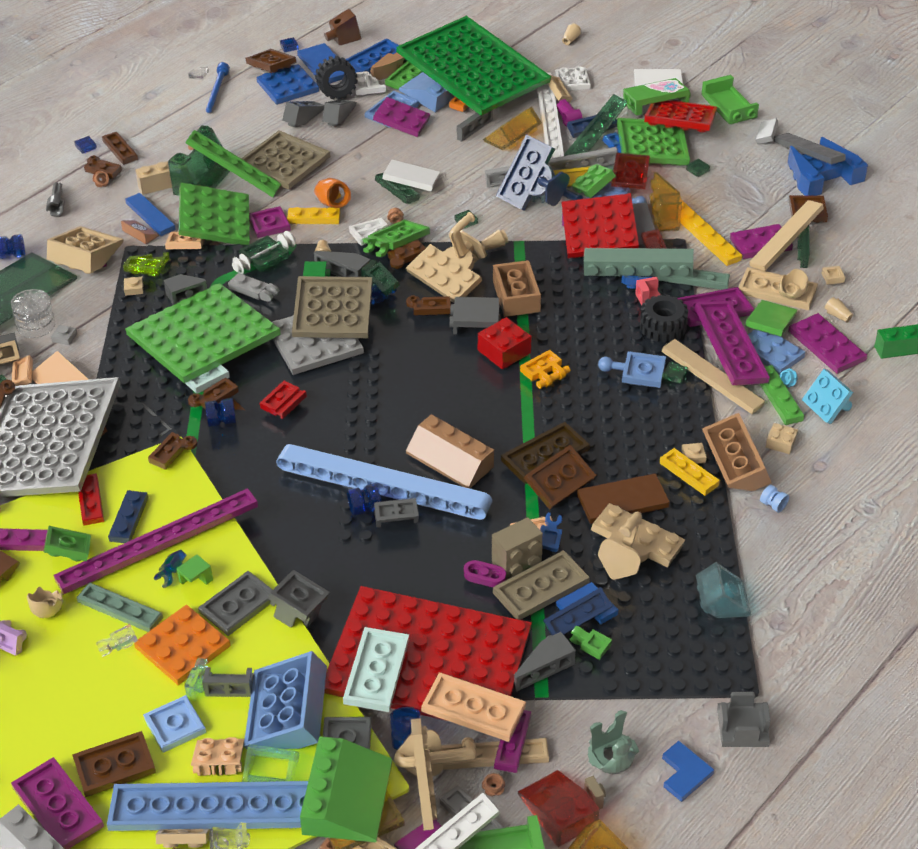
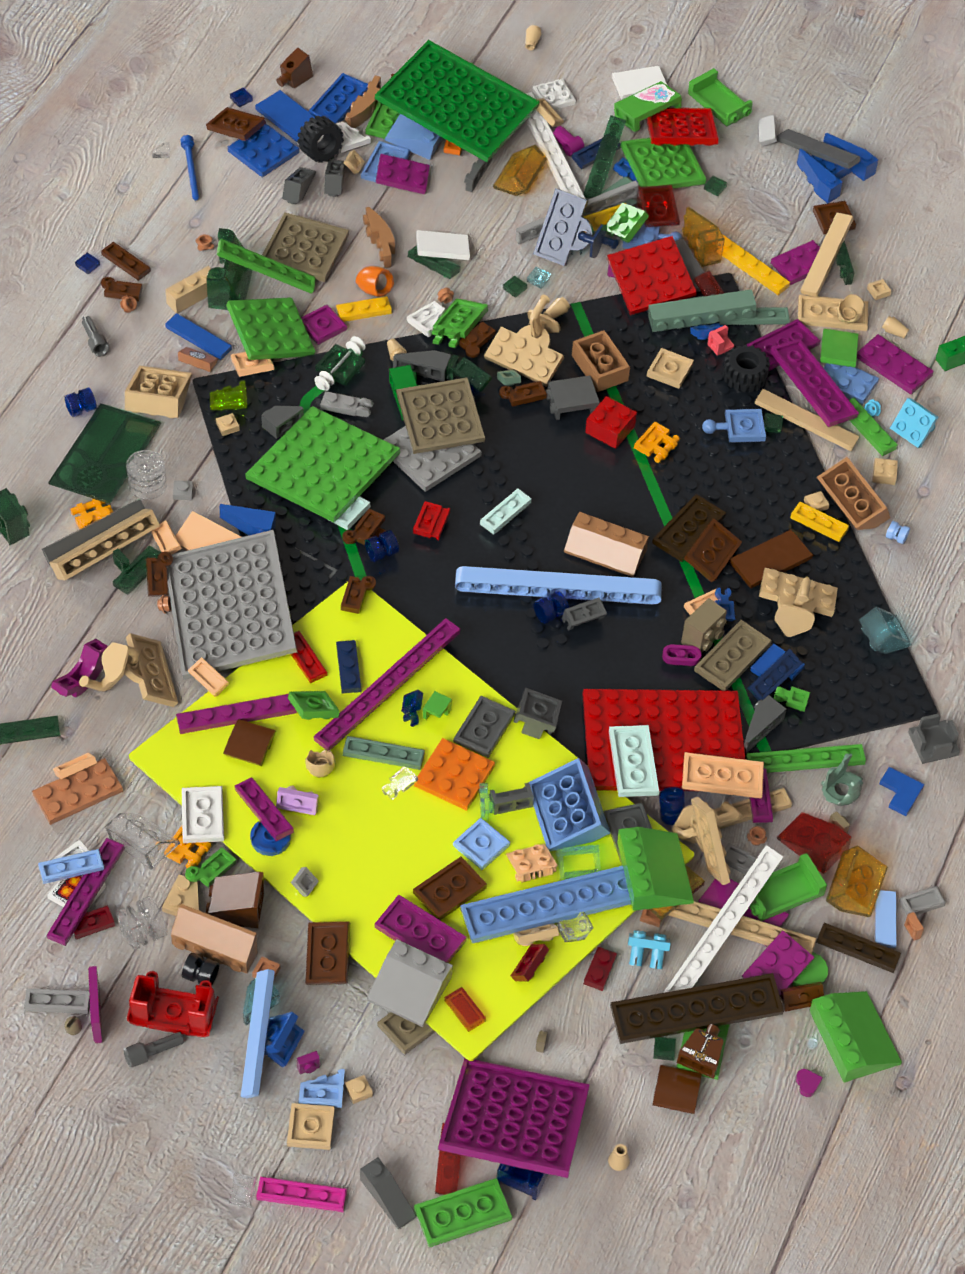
camera: 20 degrees left, 10 degrees up
(106, 366) = (247, 519): none -> blue slope
(357, 161) = (380, 234): none -> medium nougat slope
(361, 404) = (505, 511): none -> light aqua plate
(362, 102) = (354, 162): none -> tan plate
(420, 289) = (509, 377): none -> sand green plate
(491, 214) = (538, 277): none -> clear light blue plate
(586, 307) = (670, 368): none -> tan plate
(586, 711) = (809, 758): none -> bright green plate

